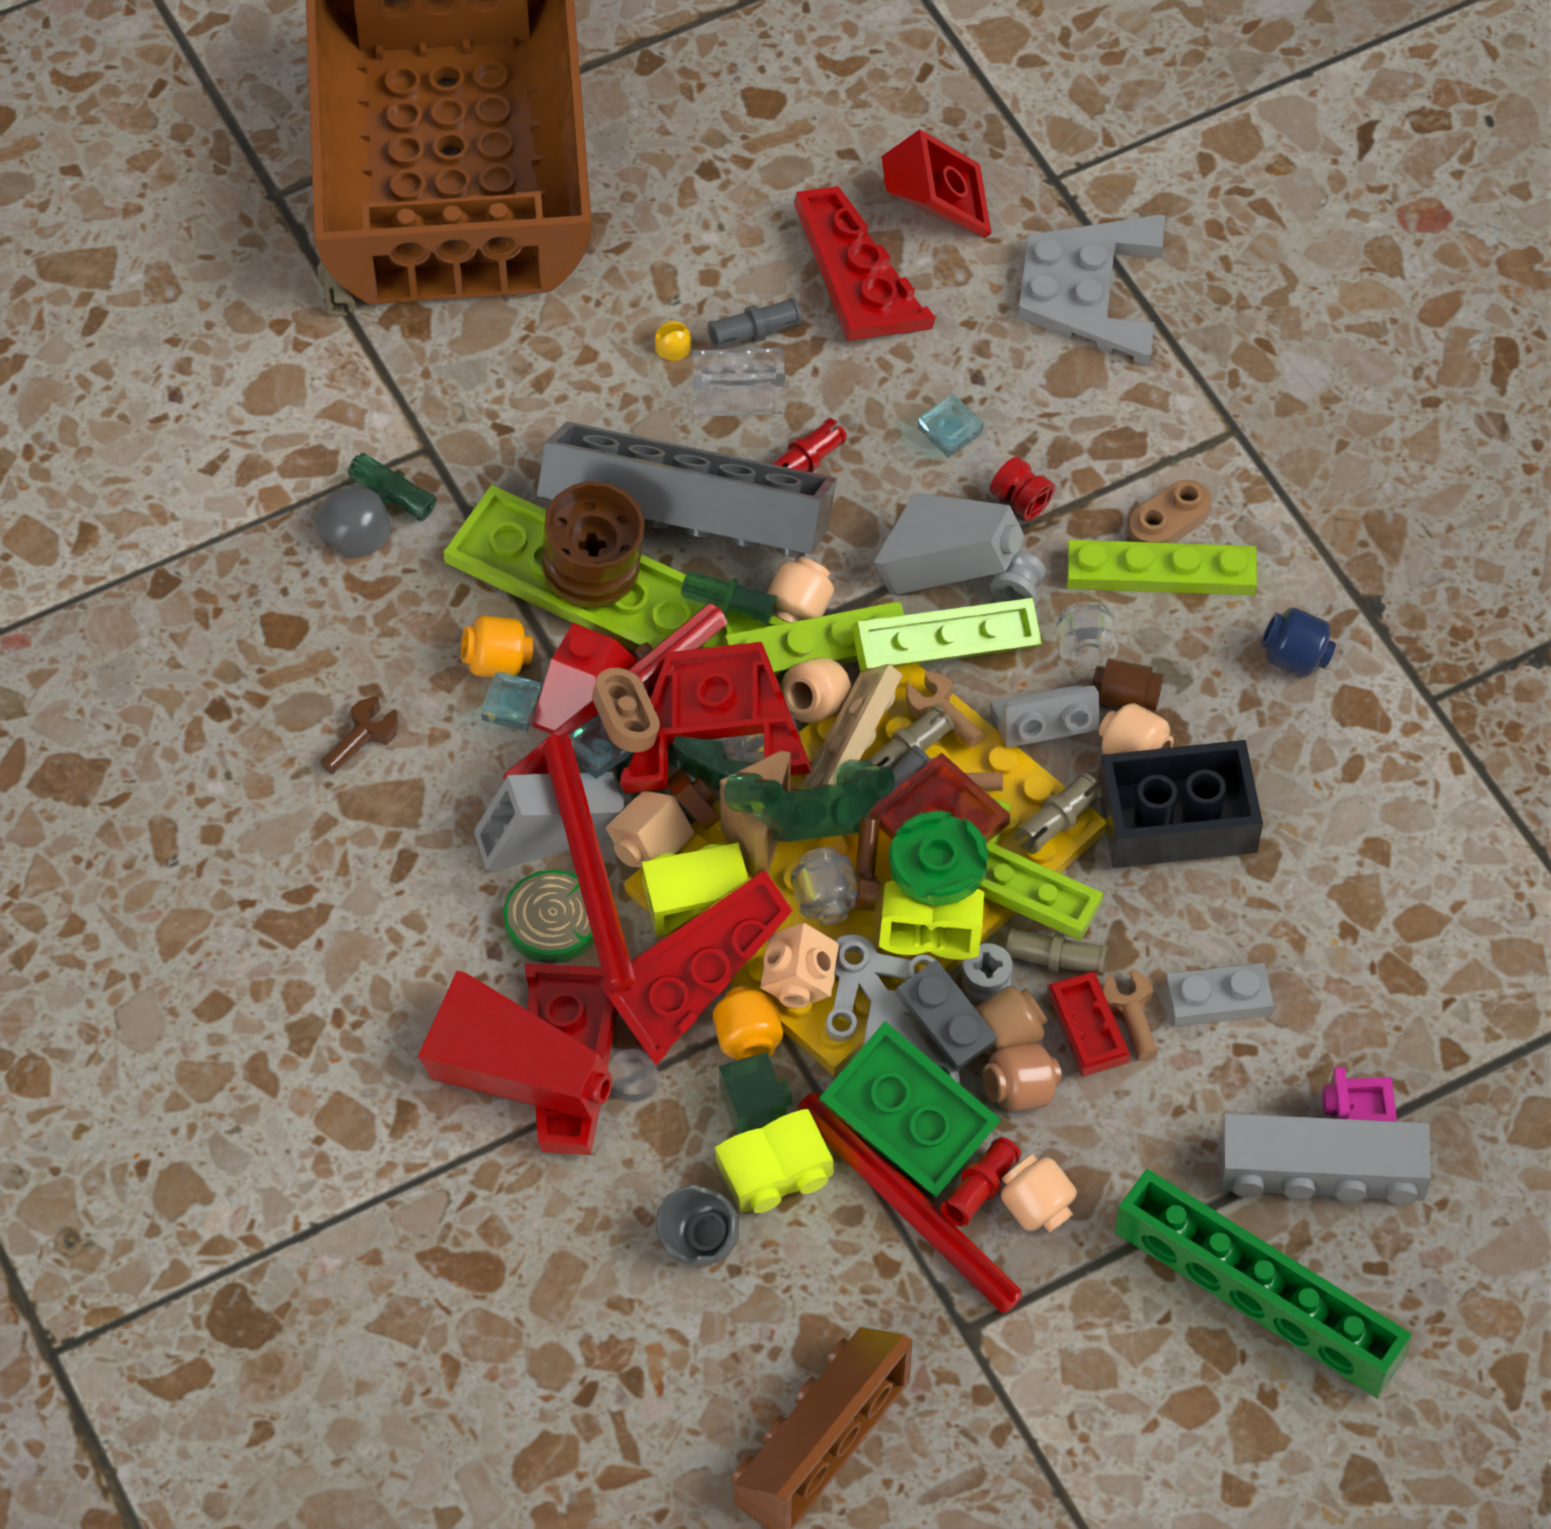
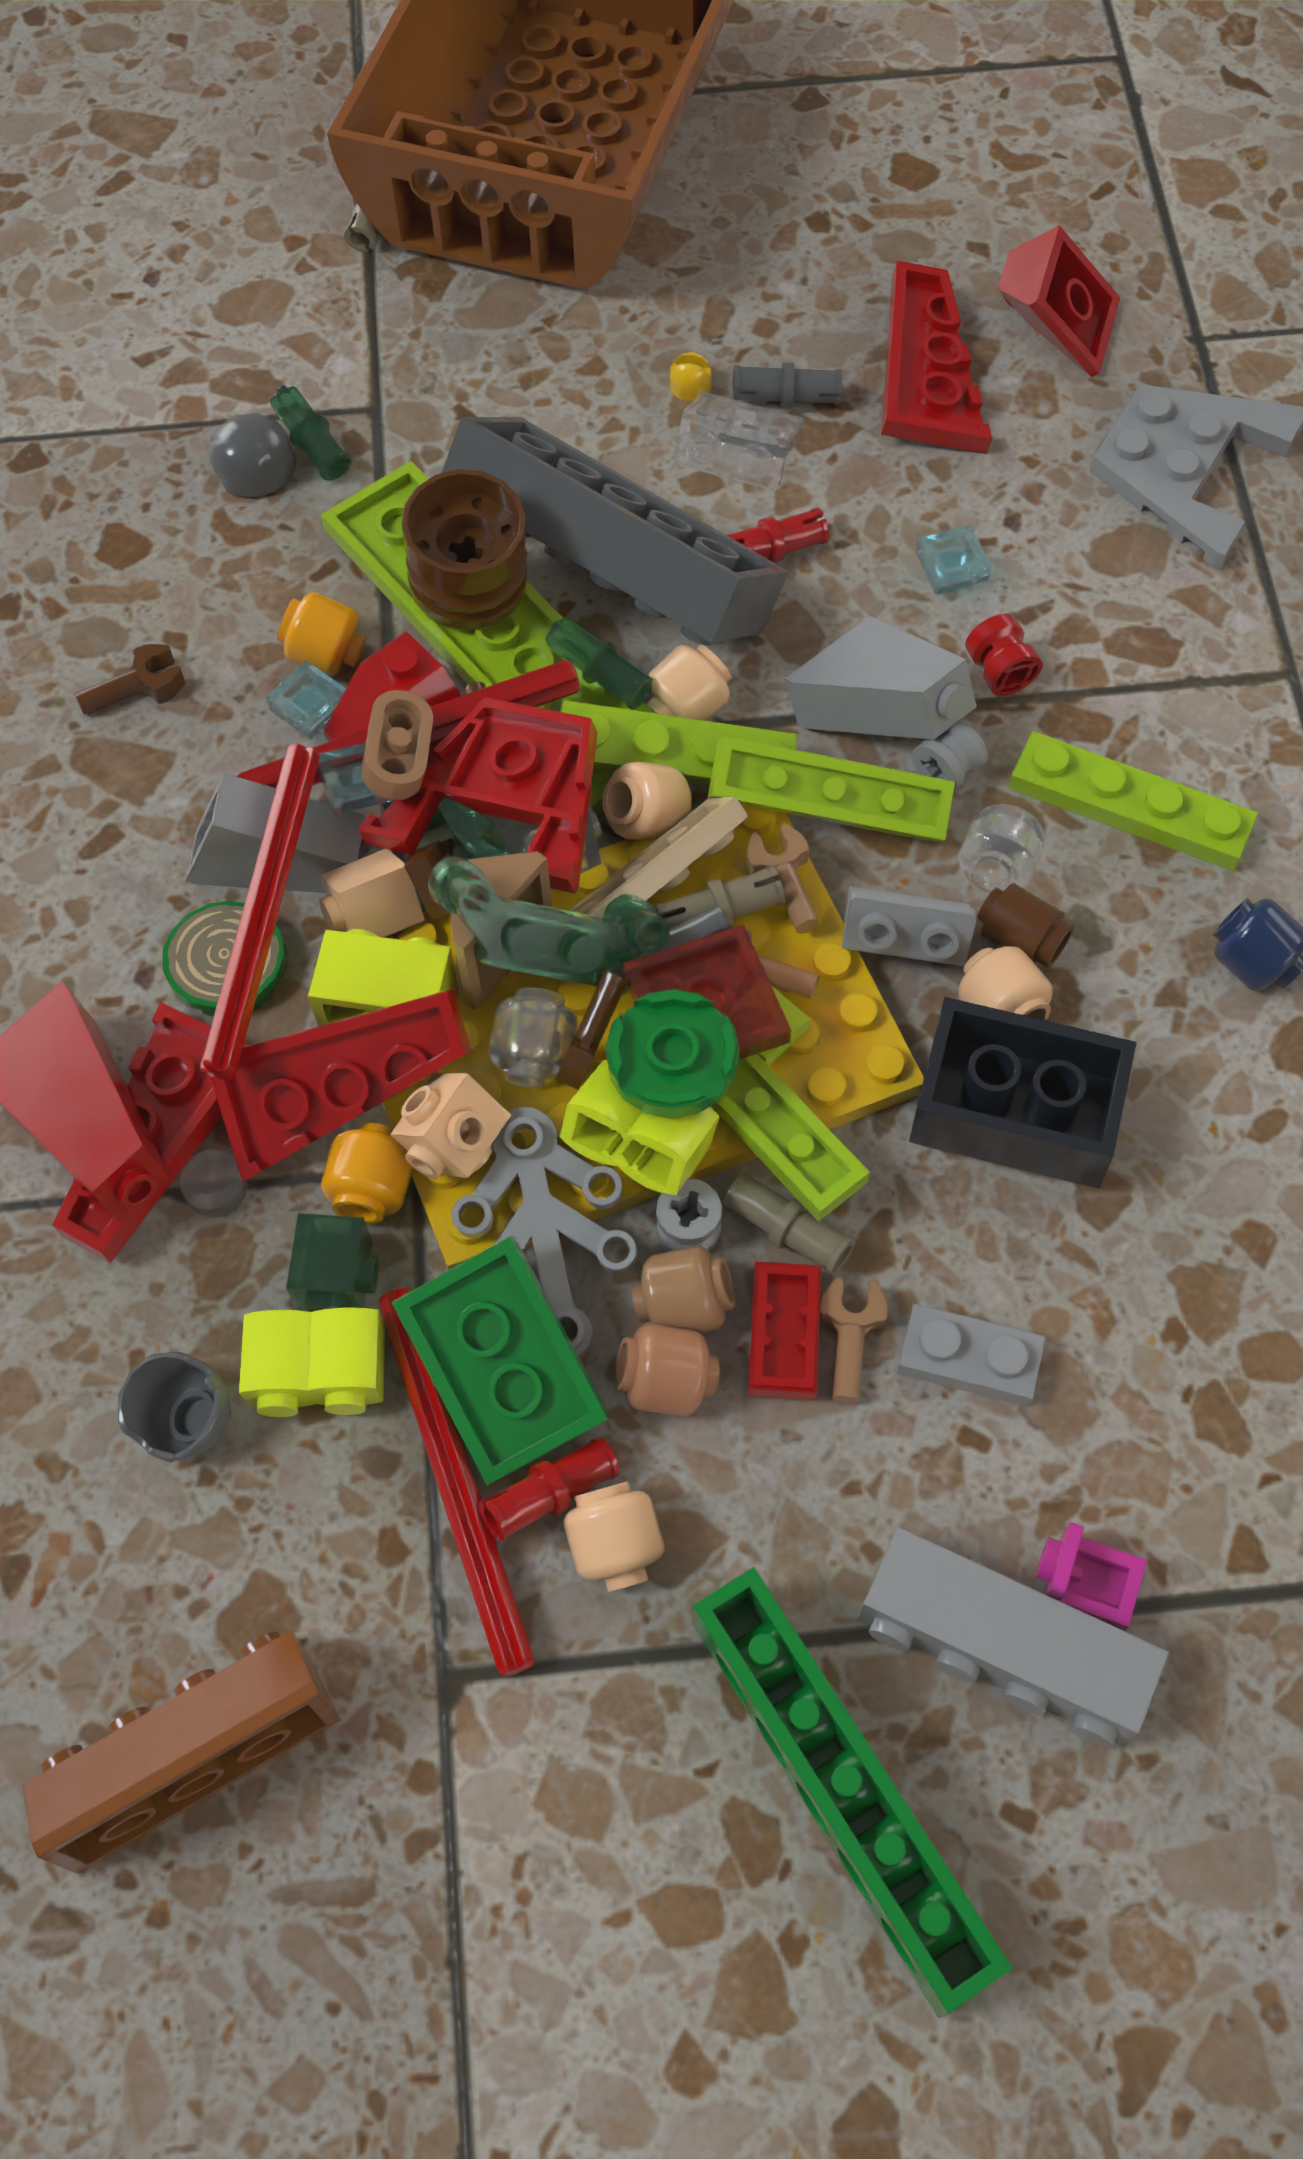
camera: 25 degrees right, 5 degrees up
(946, 1015) = (601, 1255): dark grey plate -> none
(1058, 813) = (863, 1050): dark tan pin -> none
(1172, 513) = (1171, 741): medium nougat plate -> none

